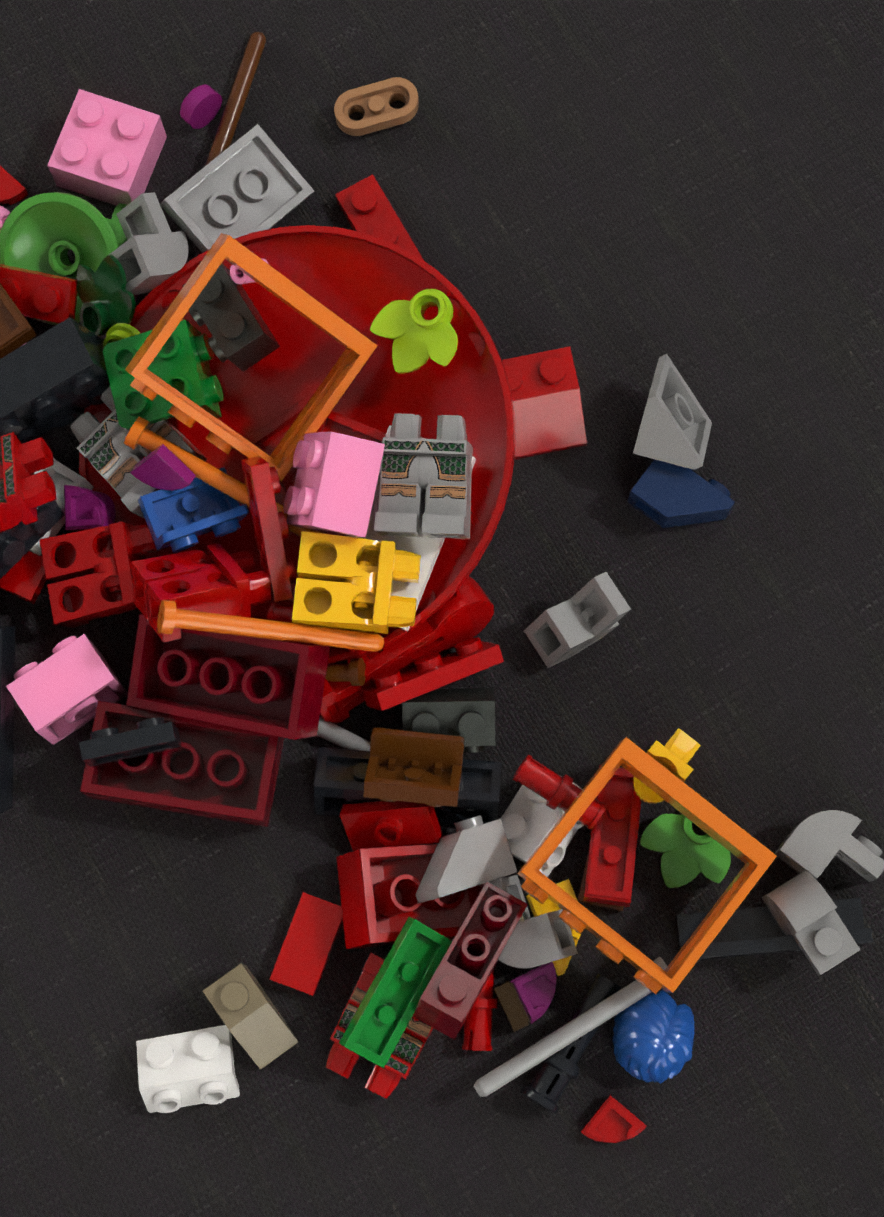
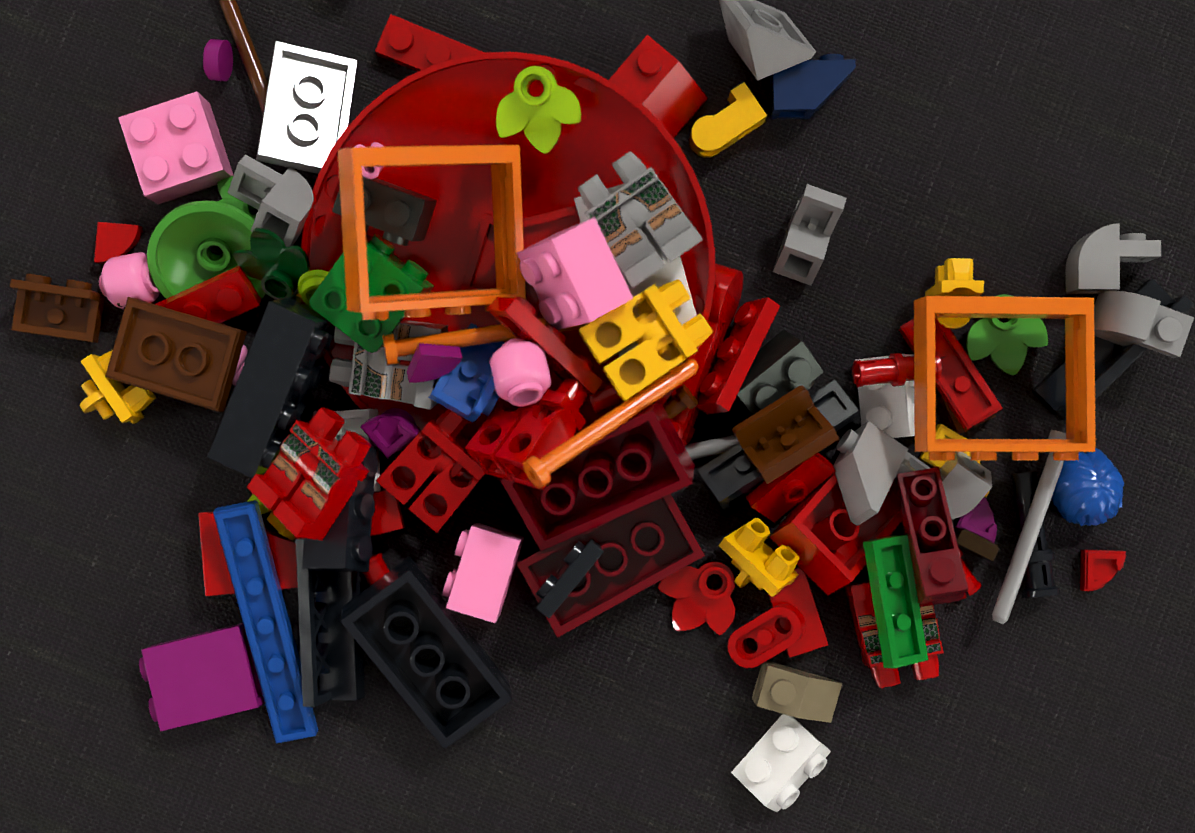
camera: 45 degrees left, 10 degrees up
(226, 531) = (520, 372): none -> bright pink head
(230, 866) = (697, 602): none -> red plate
(267, 940) = (768, 634): none -> red plate
(308, 867) = (757, 561): none -> yellow hips
(583, 477) = (717, 132): none -> yellow leg

